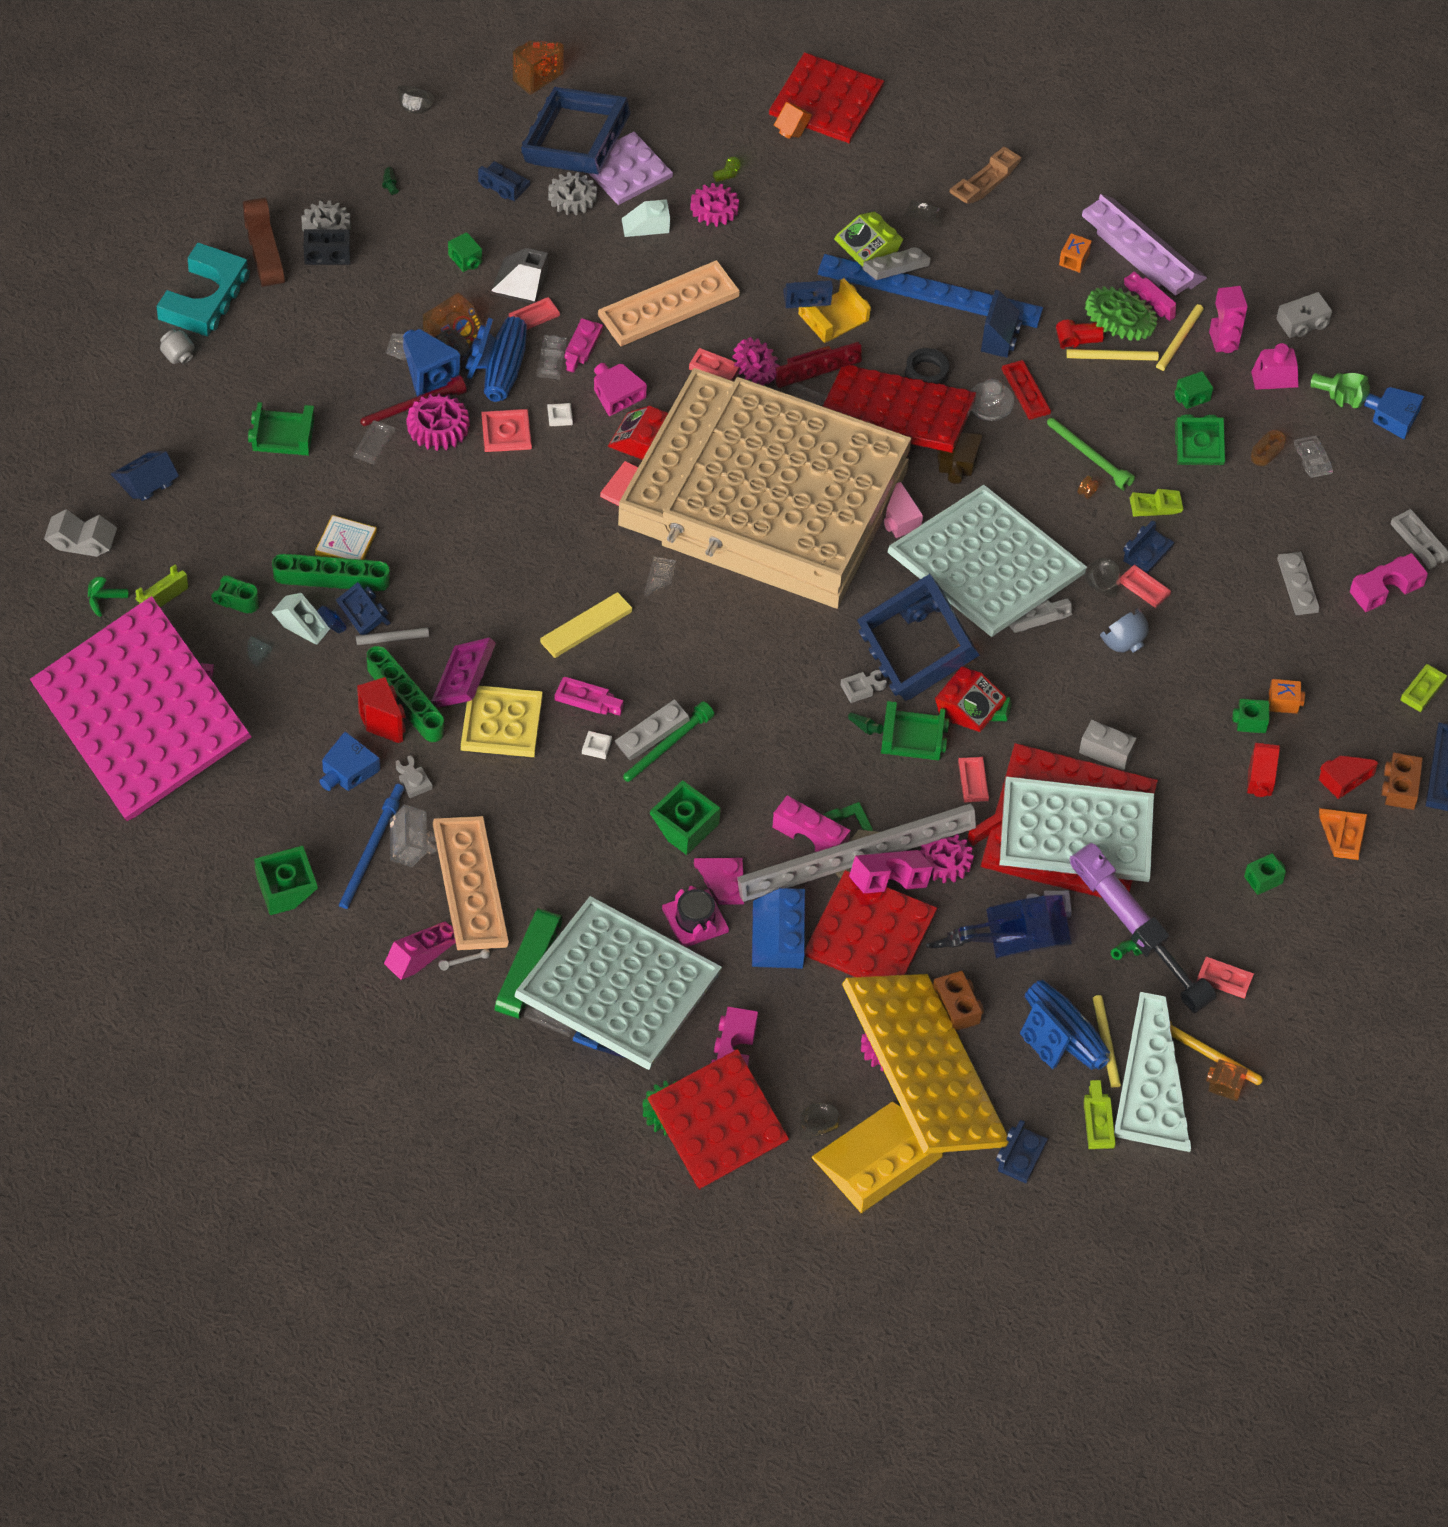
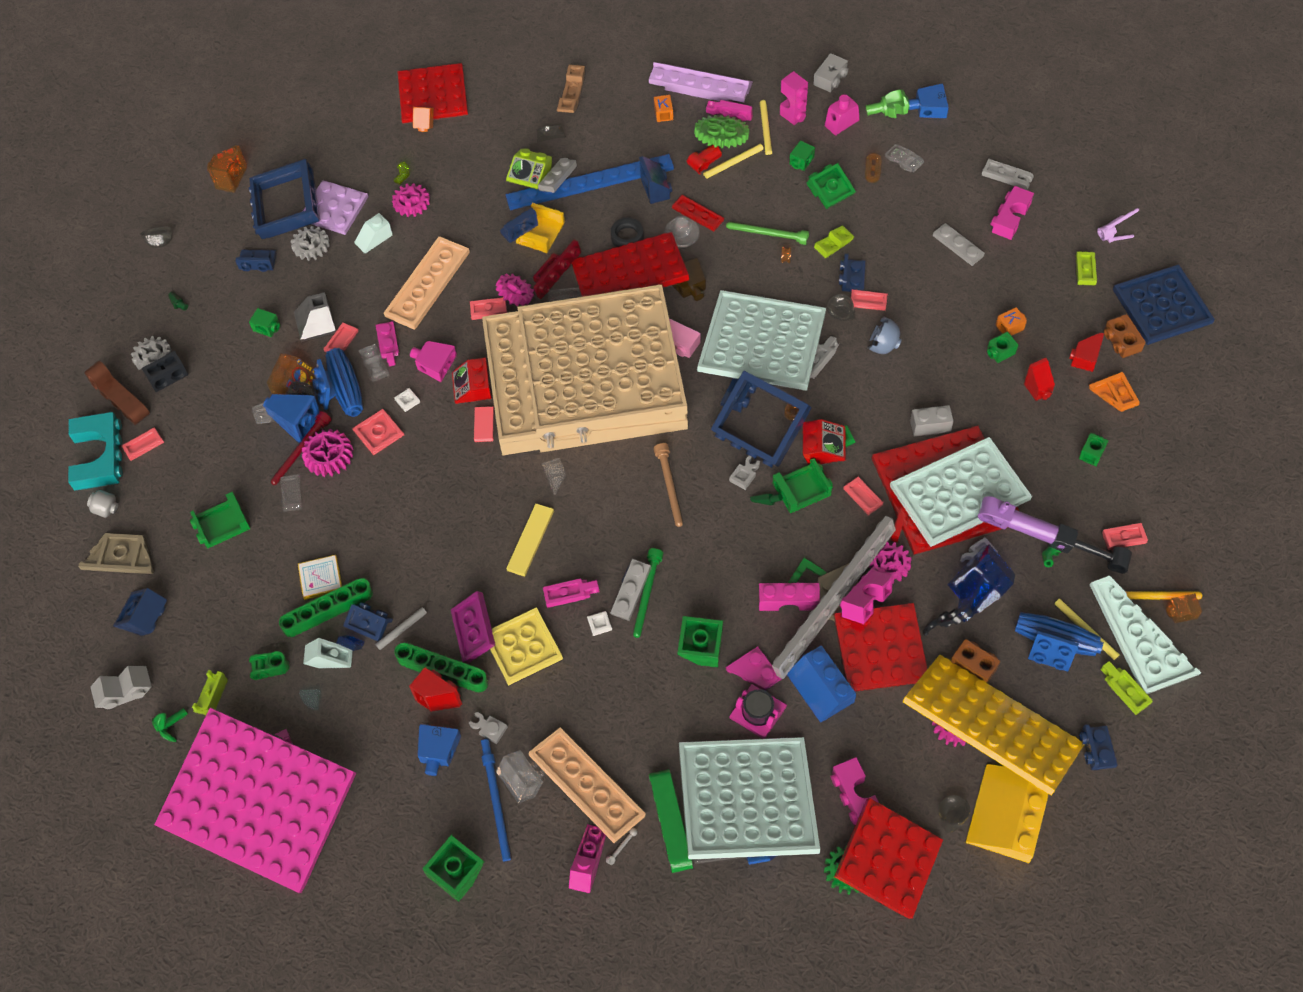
camera: 25 degrees left, 5 degrees up
(161, 407) = (119, 554): none -> dark tan wing
(256, 309) = (142, 444): none -> coral tile
(789, 616) = (662, 452): none -> medium nougat piece

